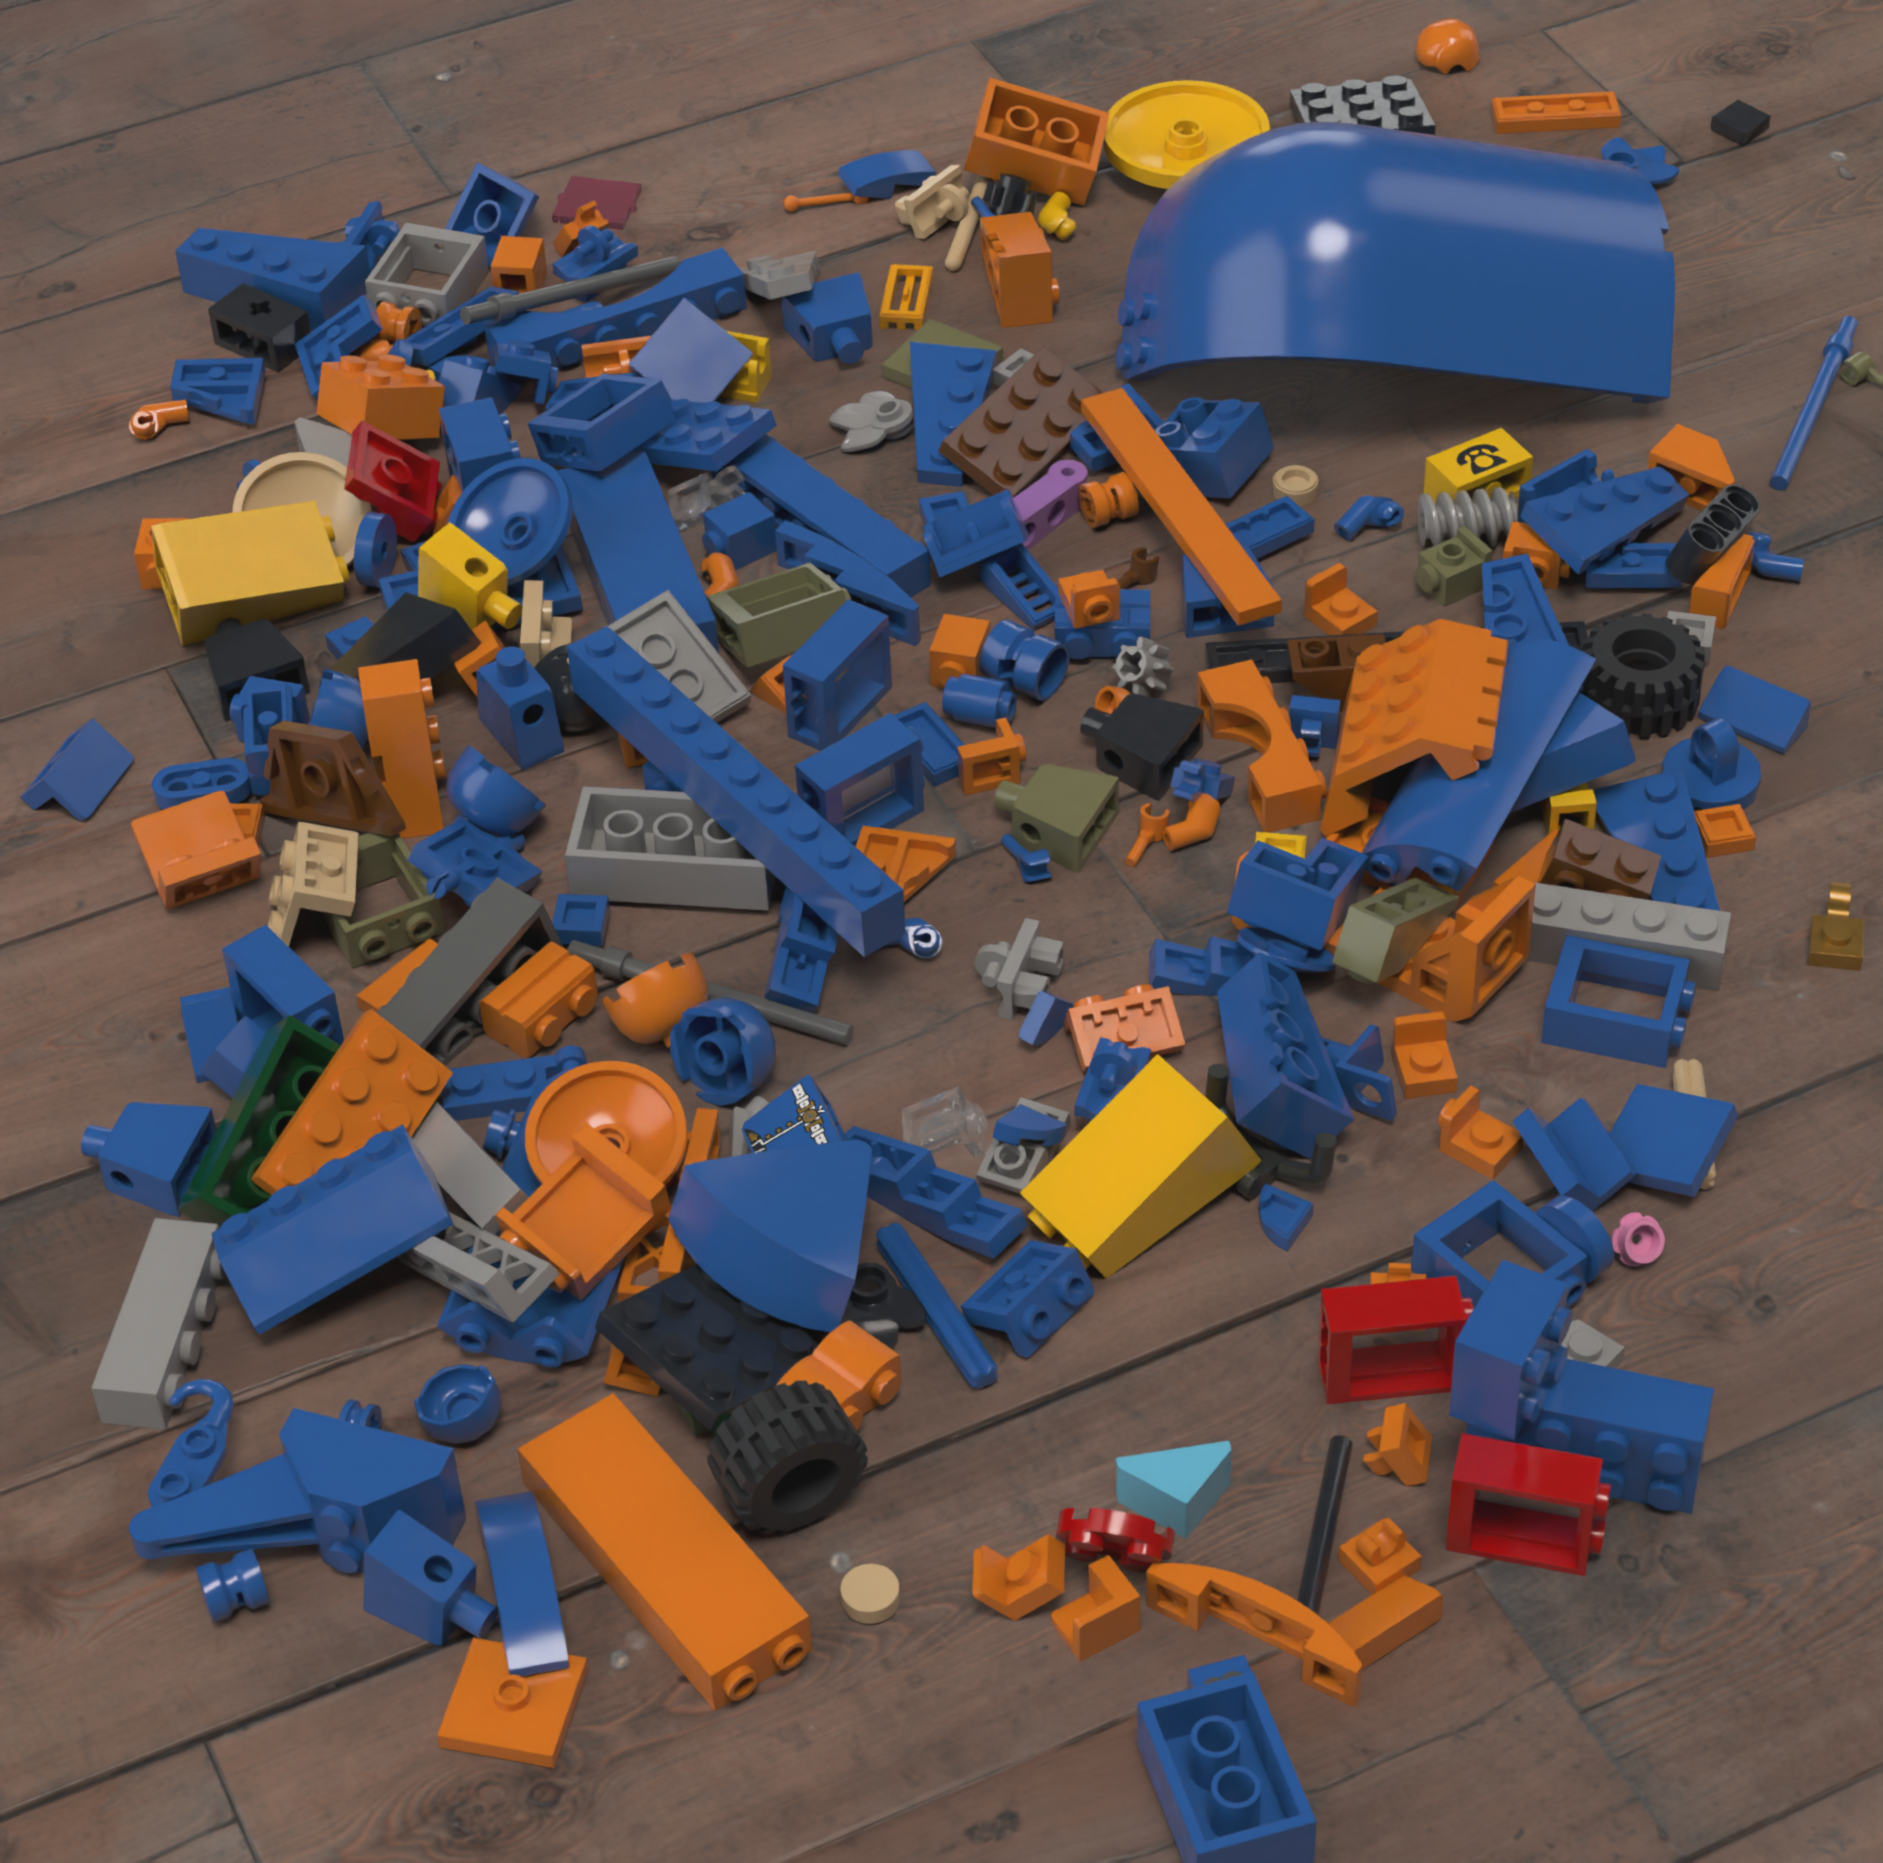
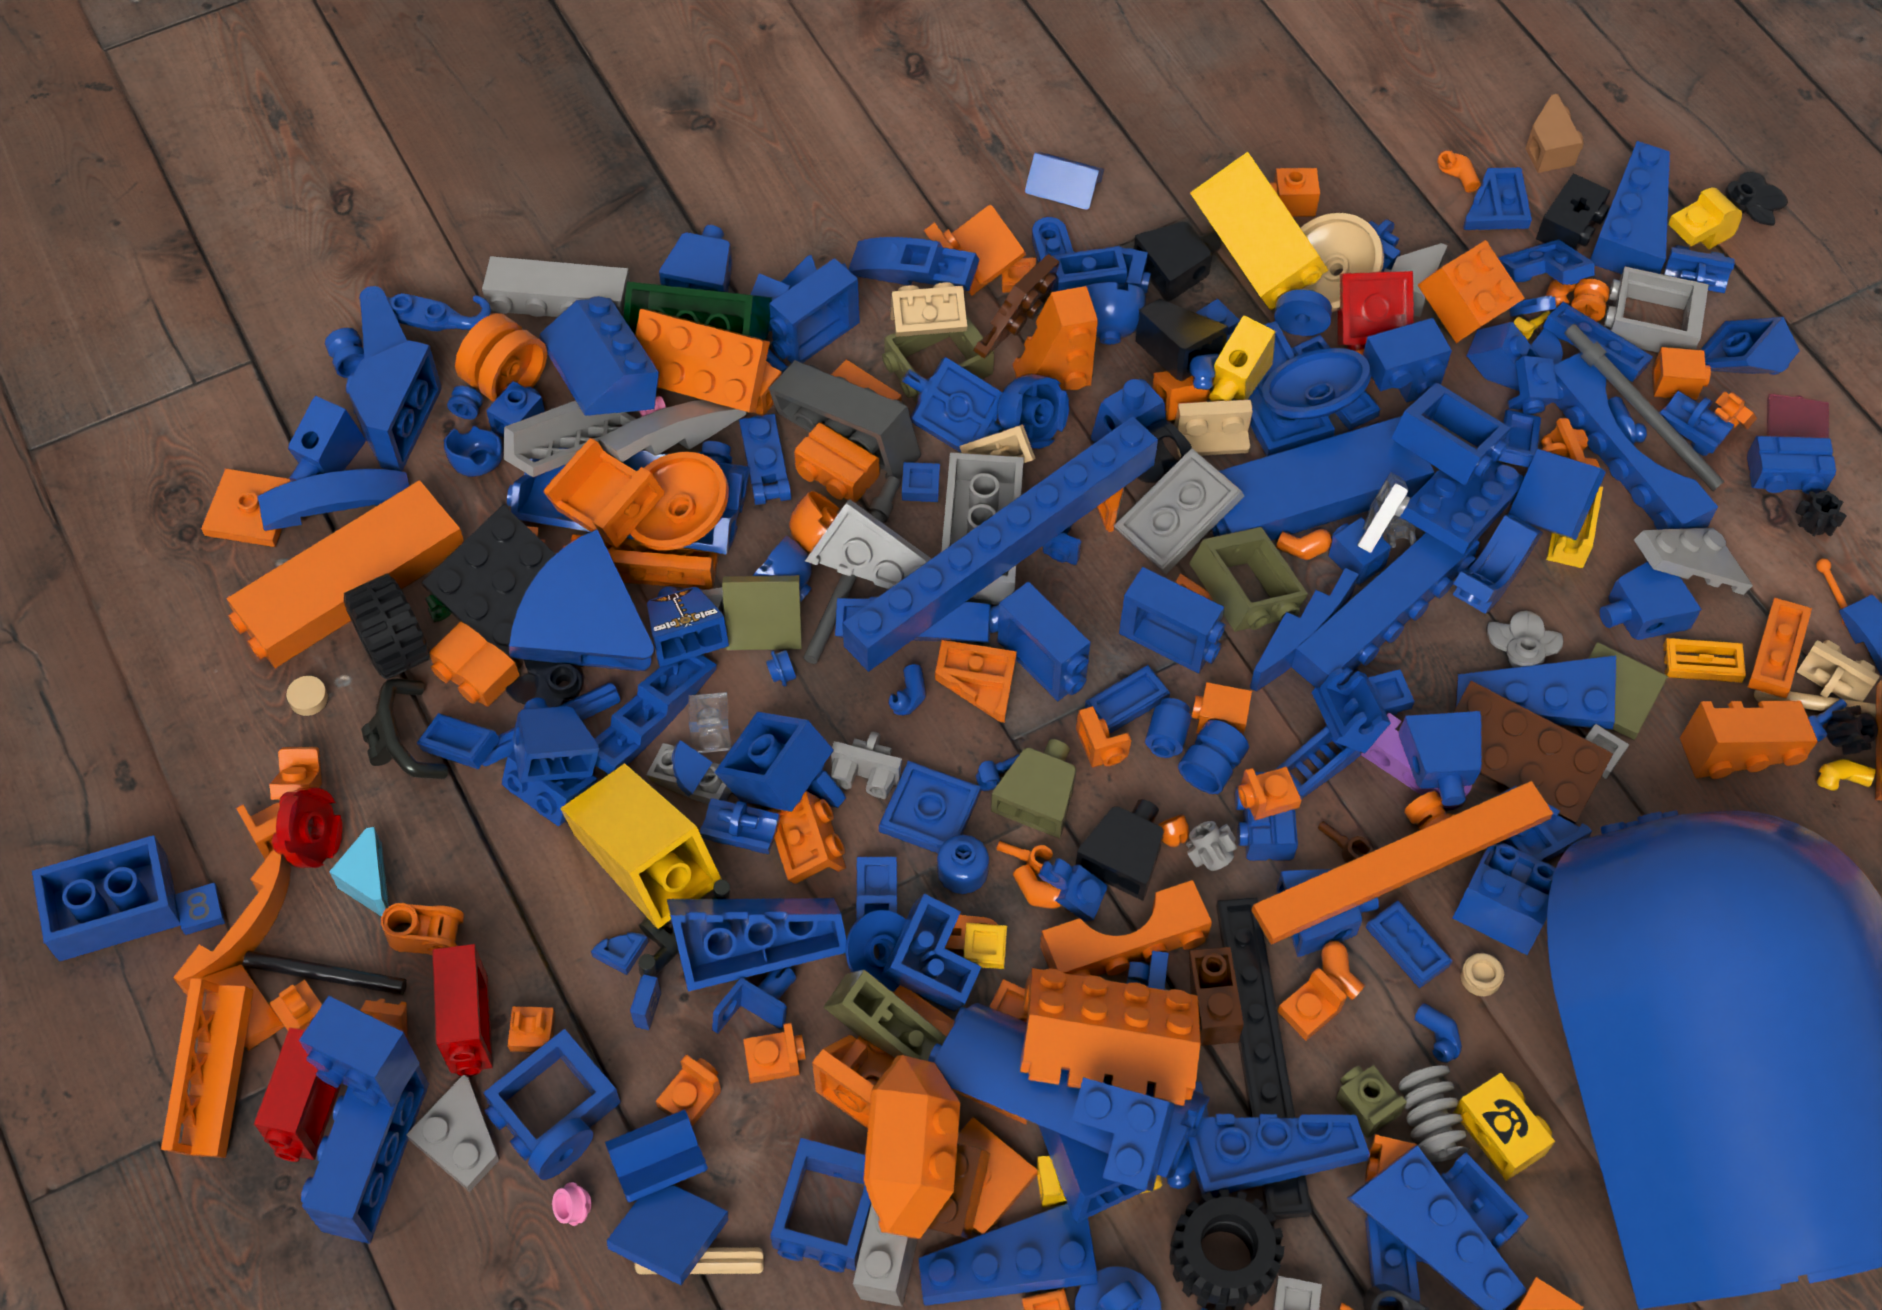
camera: 85 degrees right, 15 degrees up
(126, 333) = (1553, 138): none -> medium nougat slope
(218, 902) = (913, 259): none -> blue slope
(263, 194) = (1755, 197): none -> black plate
(301, 214) = (1707, 220): none -> yellow brick
(306, 1355) = (500, 353): none -> orange wheel
(393, 1359) = (513, 406): none -> blue brick
(481, 611) = (1203, 370): none -> blue arm
(553, 822) = (1005, 443): none -> tan slope
(660, 203) = (1791, 464): none -> blue brick
(707, 475) = (1389, 501): none -> wing
(723, 923) = (866, 548): none -> light grey wing
(729, 190) = (1820, 513): none -> black gear
(786, 1044) = (762, 612): none -> olive tile
(799, 431) = (1497, 564): none -> blue arch
(864, 1057) = (781, 667): none -> blue plate
(903, 234) = (1780, 648): none -> orange plate
(957, 1460) = (384, 738): none -> pearl dark grey piece
(965, 1393) = (458, 741): none -> blue tile
(986, 1267) = (552, 743): none -> blue torso
(1027, 1034) = (774, 761): none -> blue brick
(1044, 458) = (1443, 752): none -> blue torso
(1086, 917) = (928, 807): none -> blue tile
(1169, 875) = (963, 864): none -> blue head
(1261, 1420) = (430, 927): none -> orange piece
(1291, 584) = (1336, 962): none -> orange arm
(1362, 1174) = (645, 1002): none -> blue tile
(1491, 1619) = (211, 1070): none -> orange fence
(1559, 655) = (1138, 1127): none -> blue brick
(1572, 855) = (911, 1146): none -> orange wedge

